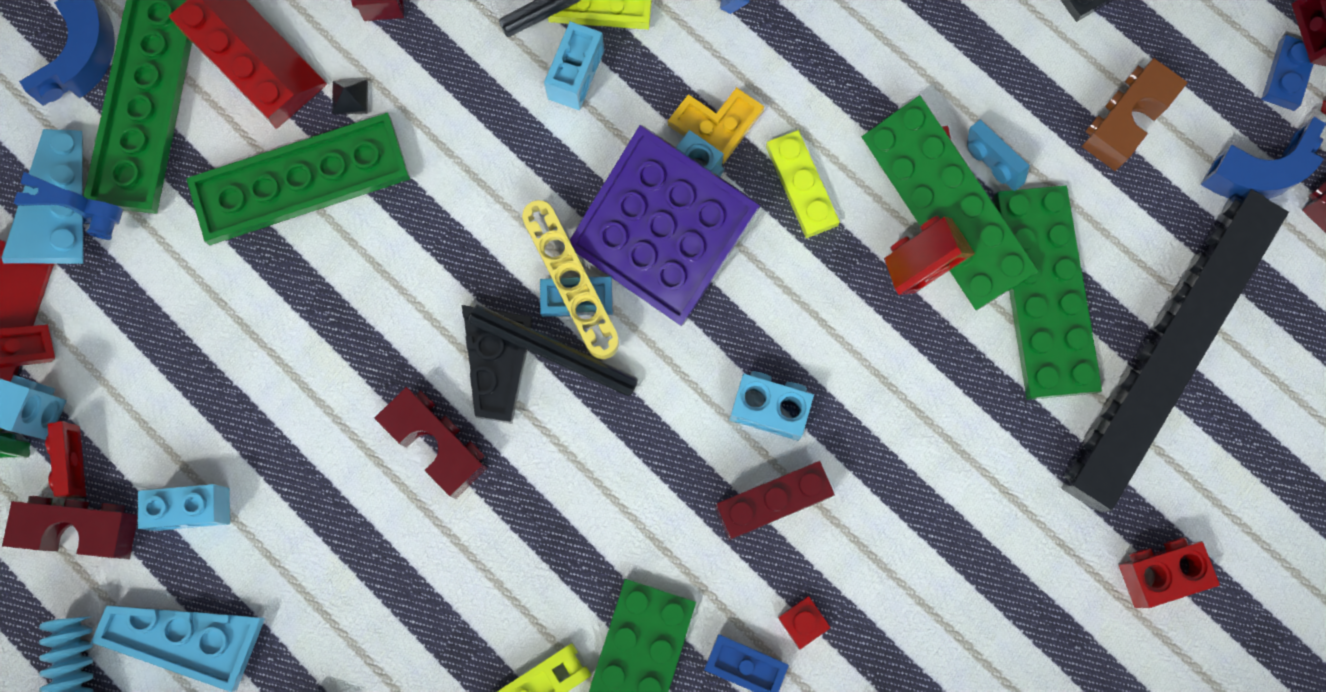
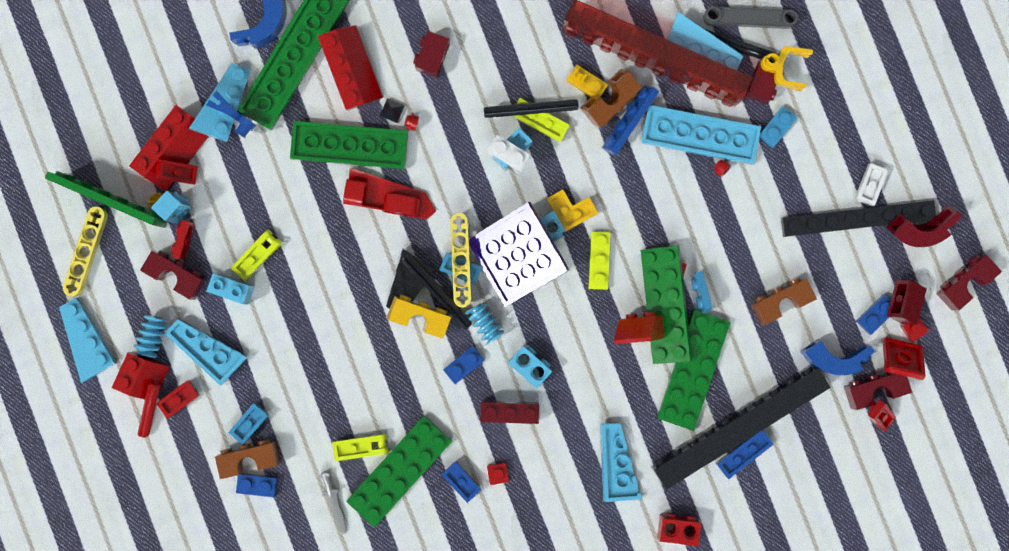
camera: 25 degrees right, 10 degrees up
(209, 431) = (256, 255): none -> neon yellow plate
(388, 97) = (411, 121): none -> red plate
(404, 233) = (390, 197): none -> red panel
(411, 417) = (368, 324): dark red arch -> none
(571, 66) = (508, 153): none -> white plate
(572, 401) = (435, 320): none -> yellow arch
(655, 457) = (463, 365): none -> blue plate
(658, 366) = (485, 322): none -> medium azure piece
(1010, 523) = (617, 471): none -> medium azure wing
(1206, 392) = (744, 454): none -> blue plate

